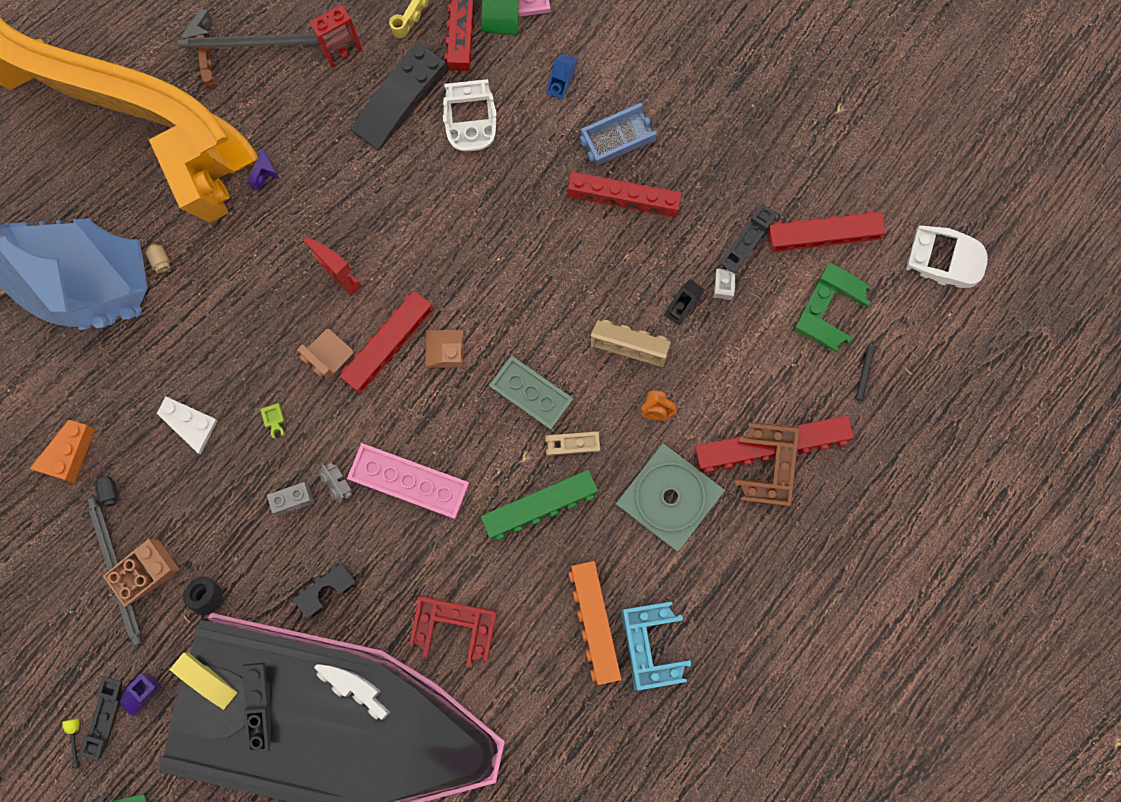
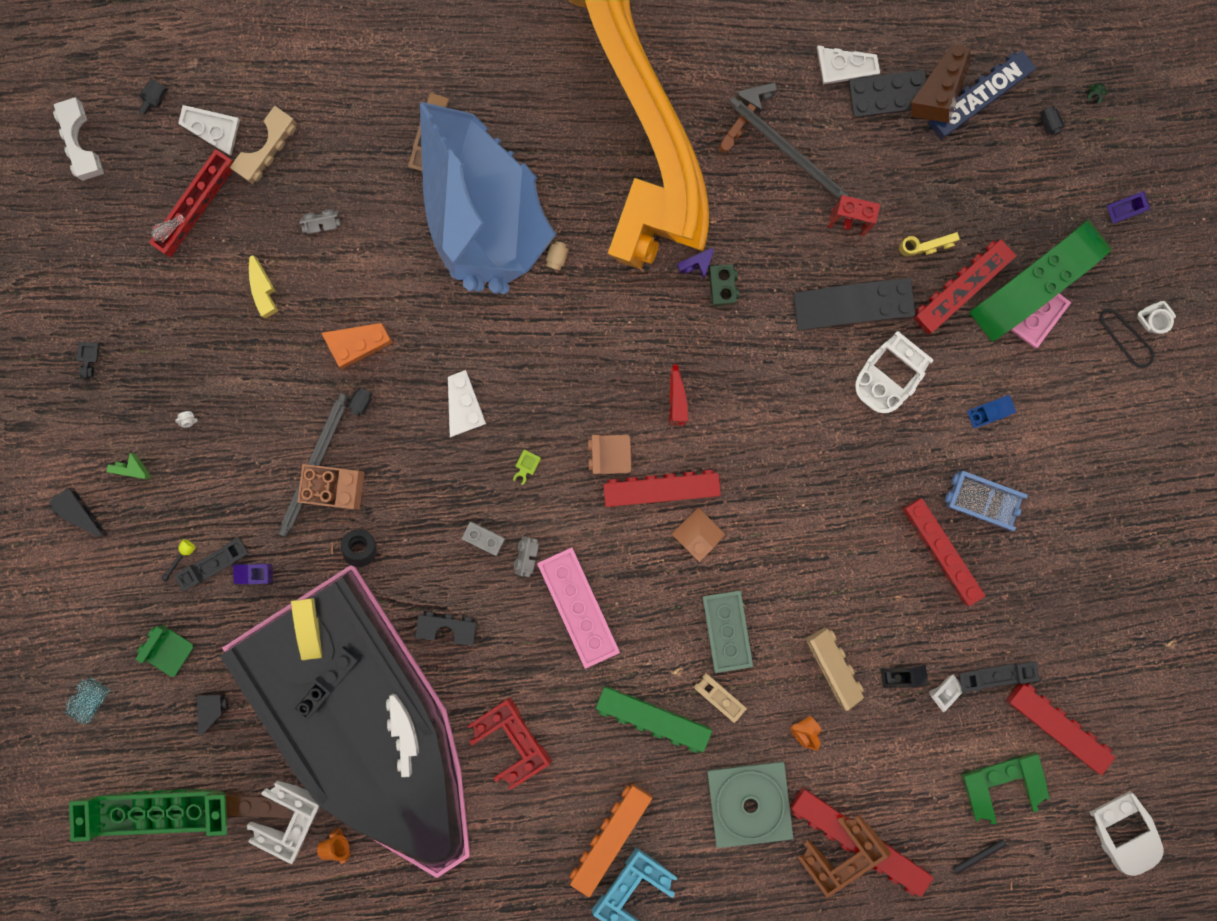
camera: 35 degrees right, 10 degrees up
(293, 170) = (718, 285): none -> dark green brick

